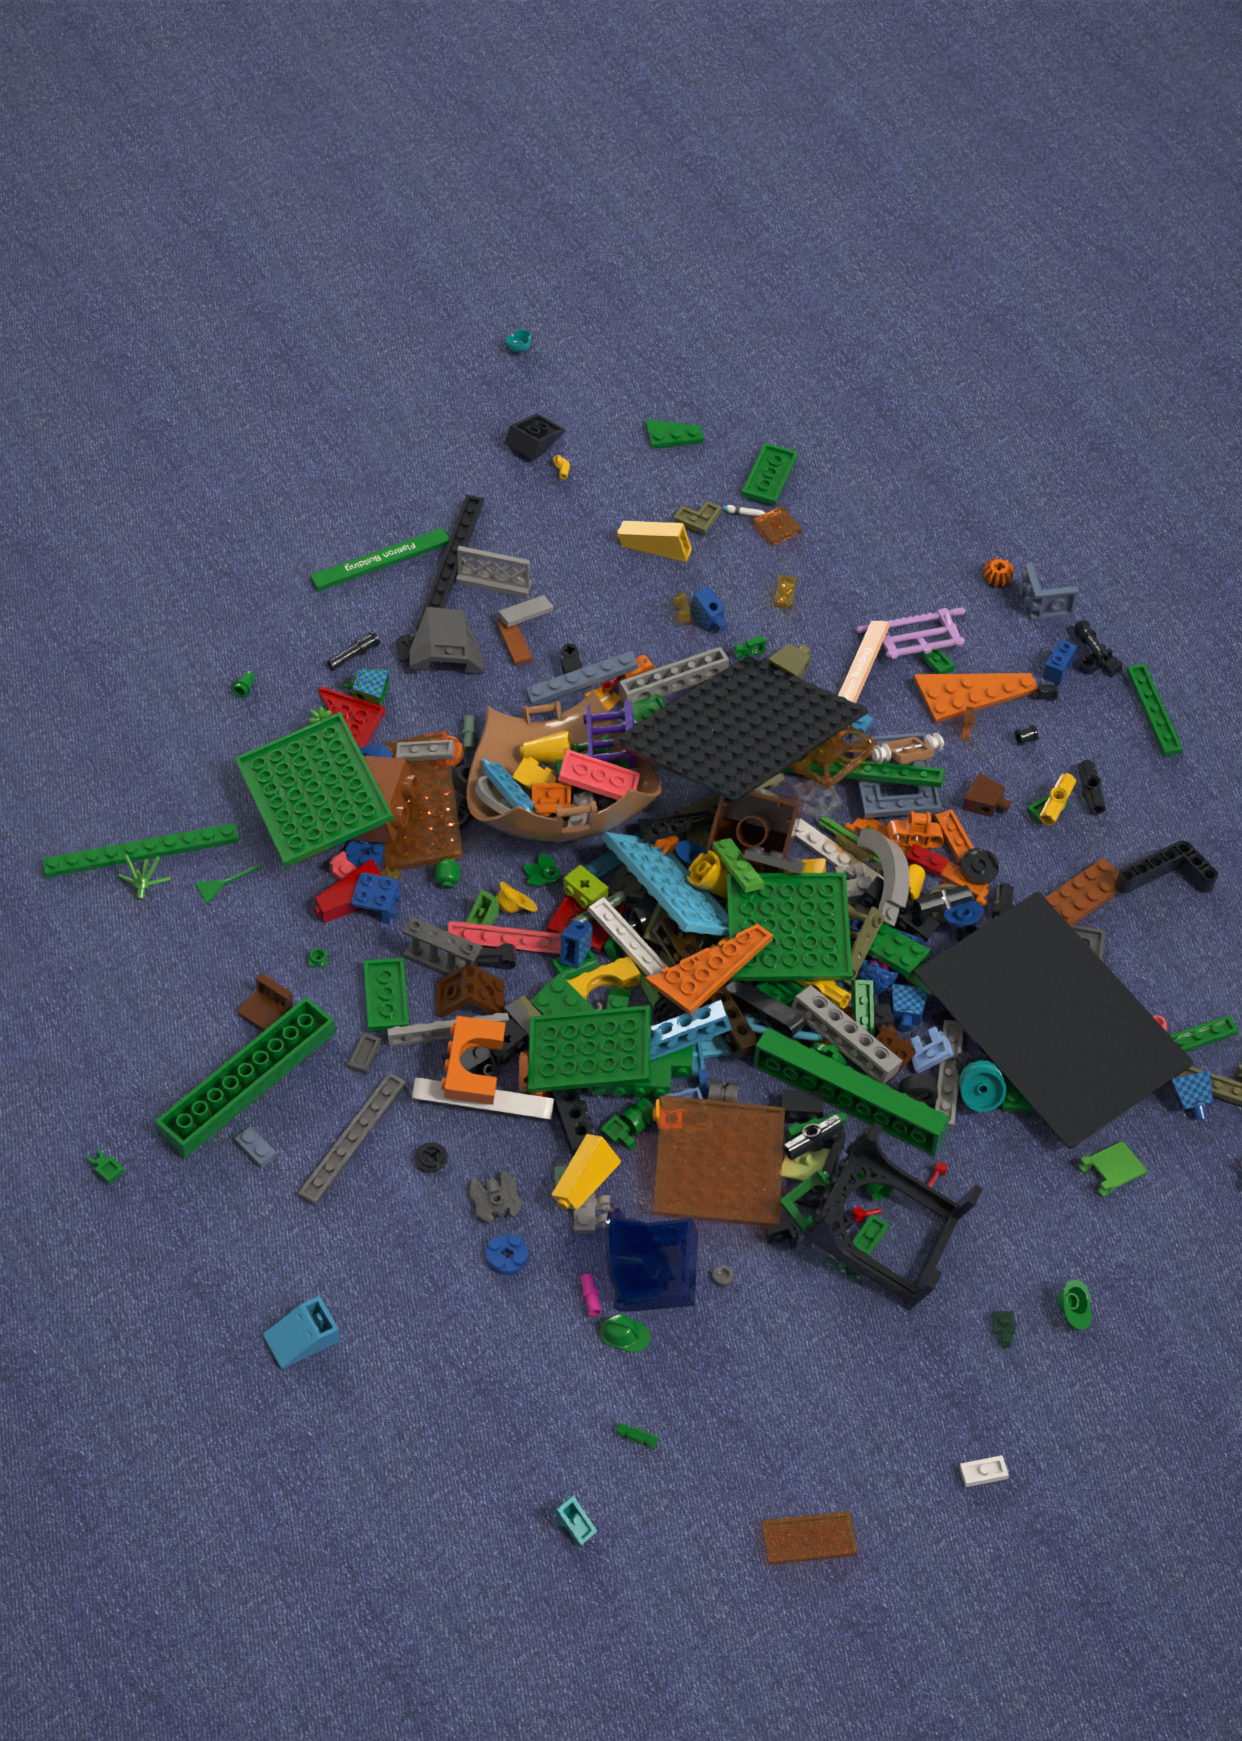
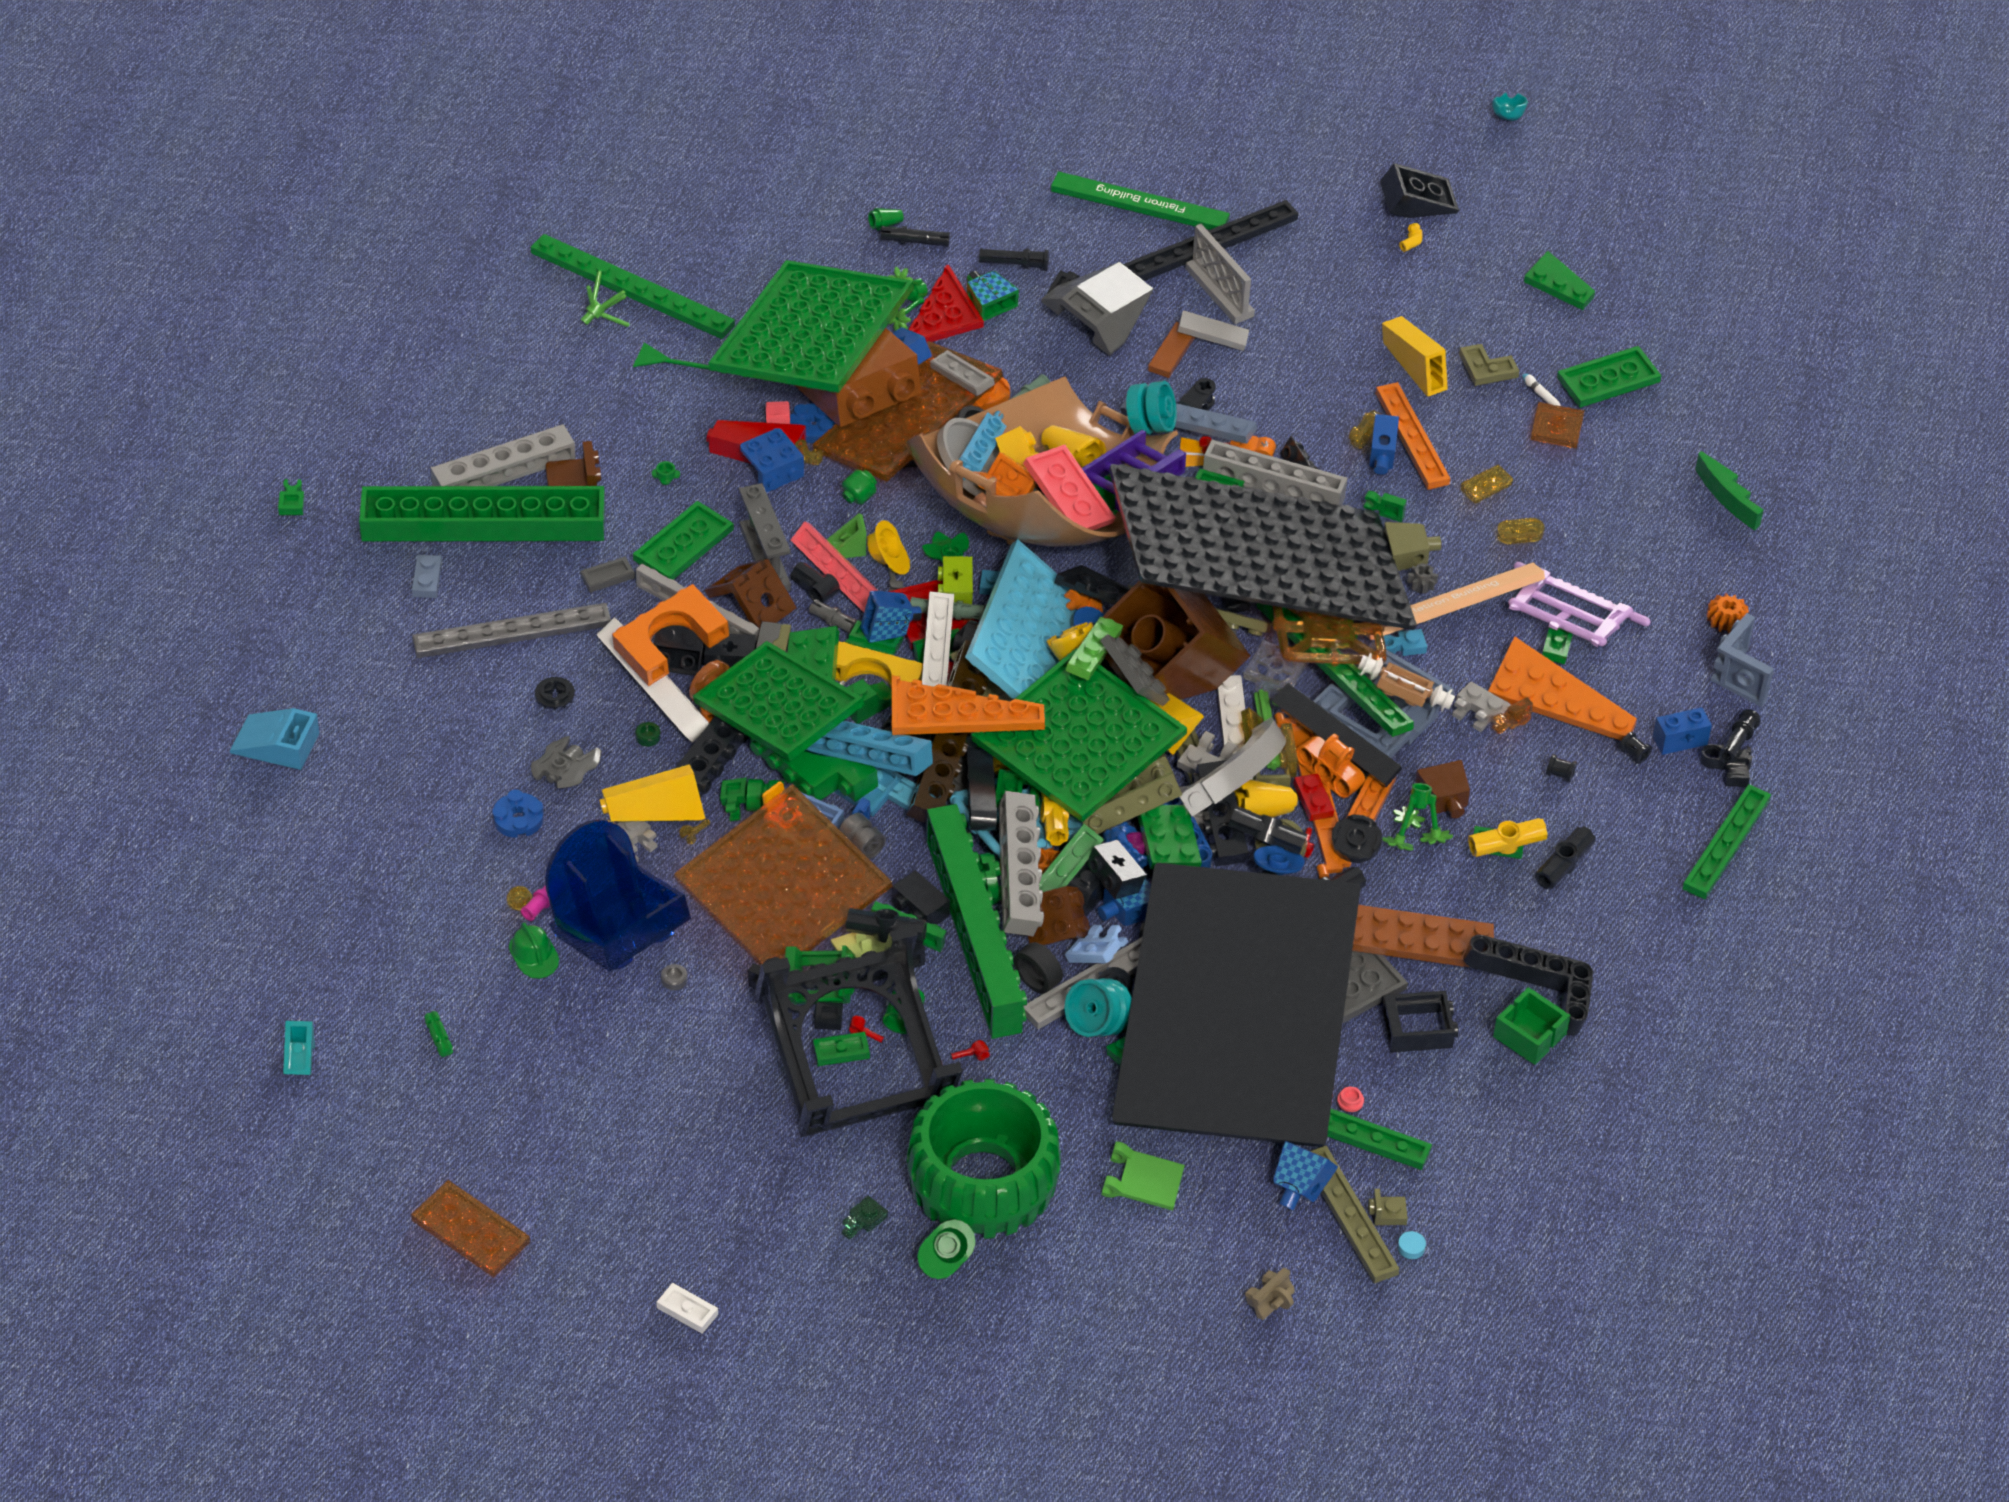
camera: 45 degrees right, 5 degrees down
(235, 993) = (507, 460): none -> light grey brick
(270, 686) = (915, 236): none -> black pin
(517, 1136) = (648, 734): none -> dark green tile
(533, 969) = (832, 616): none -> dark grey pin
(542, 921) = (894, 584): none -> dark grey hand
(567, 686) = (1151, 407): none -> teal wheel
(576, 1302) = (518, 897): none -> clear yellow plate
(620, 1174) = (692, 831): none -> clear yellow hand
(666, 656) = (1296, 453): none -> black hinge
(729, 599) = (1413, 436): none -> orange plate
(823, 677) = (1422, 578): none -> dark grey gear
(834, 609) = (1520, 531): none -> clear yellow plate
(895, 993) = (1116, 869): none -> black brick
(900, 810) = (1324, 725): none -> black tile
(907, 496) = (1724, 486): none -> green slope
(947, 728) = (1481, 702): none -> light grey plate
(994, 812) = (1419, 799): none -> plant
(1045, 1201) = (991, 1121): none -> green tyre
(1129, 962) = (1416, 1004): none -> black window
(1196, 901) = (1534, 1027): none -> green piece

